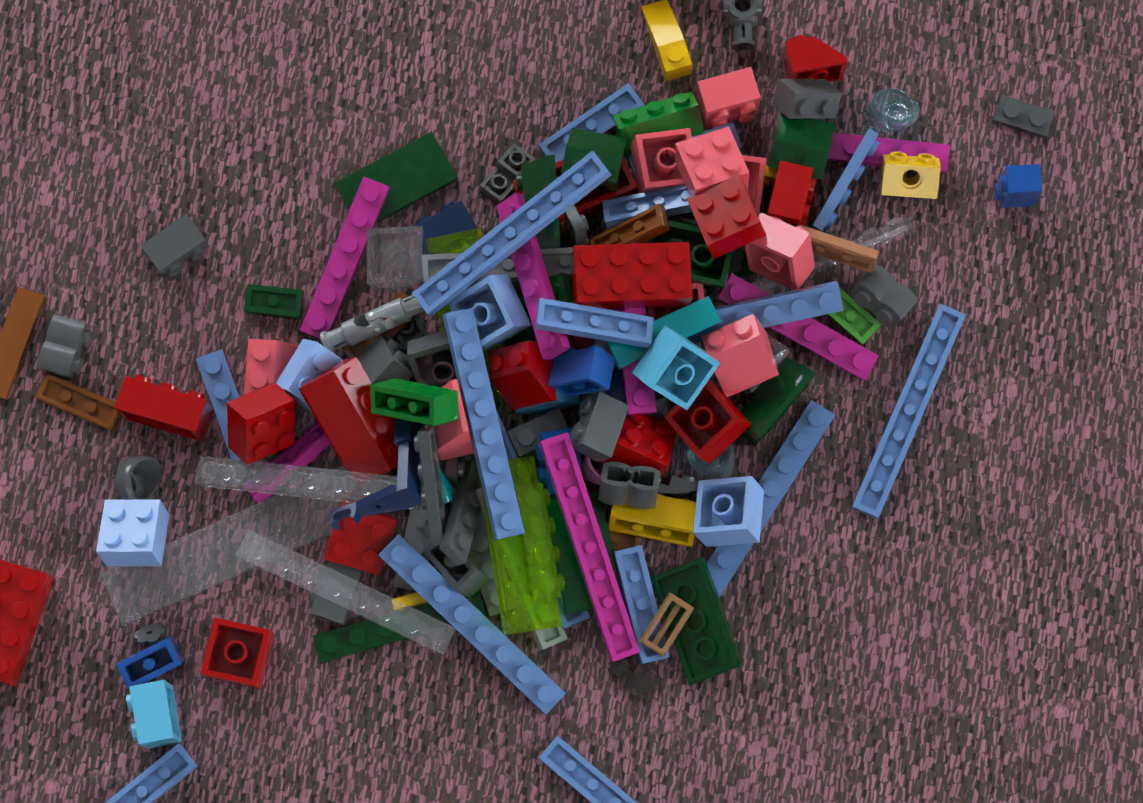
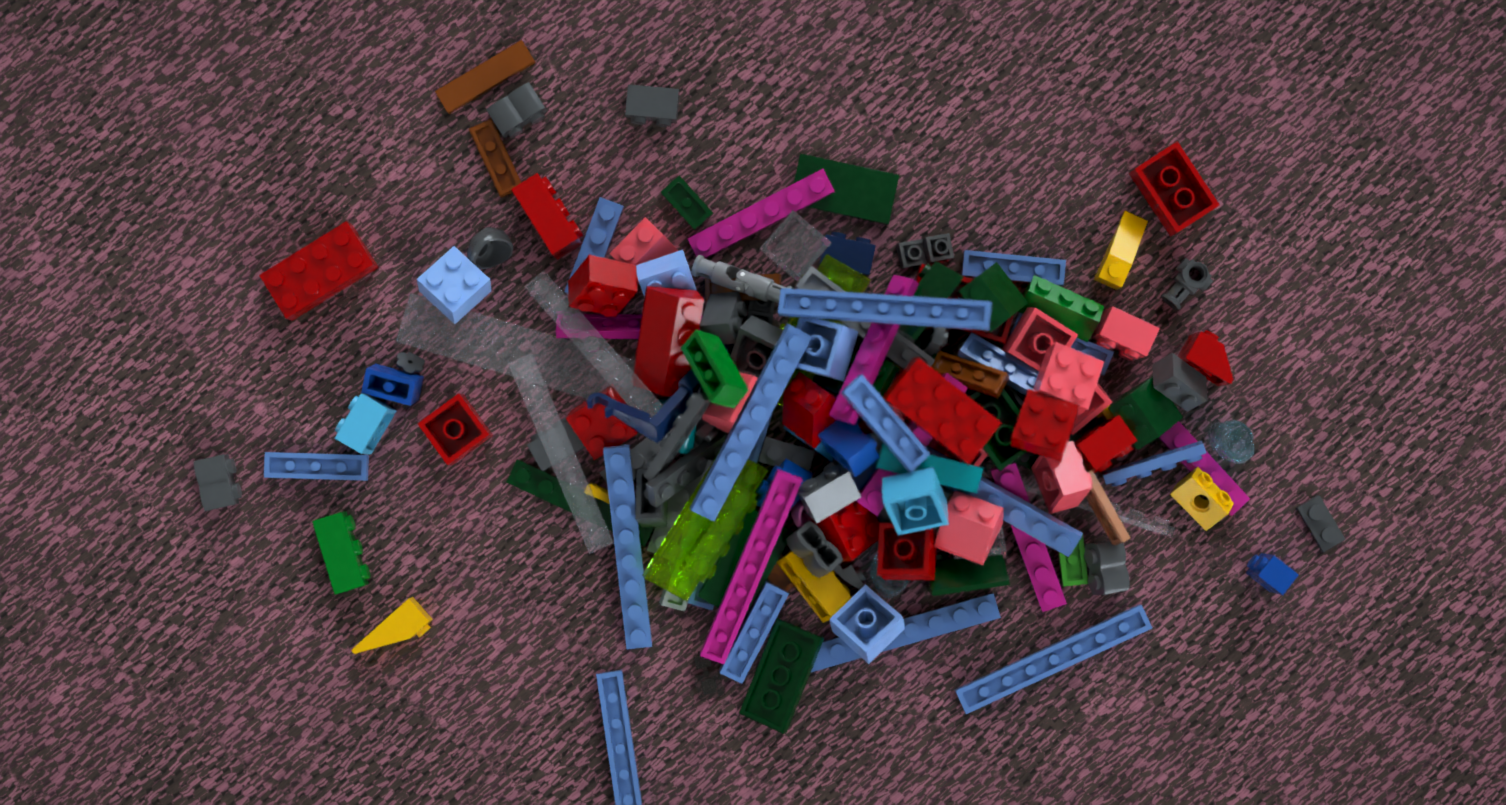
camera: 40 degrees right, 10 degrees up
(678, 604) = (756, 652): medium nougat tile -> none

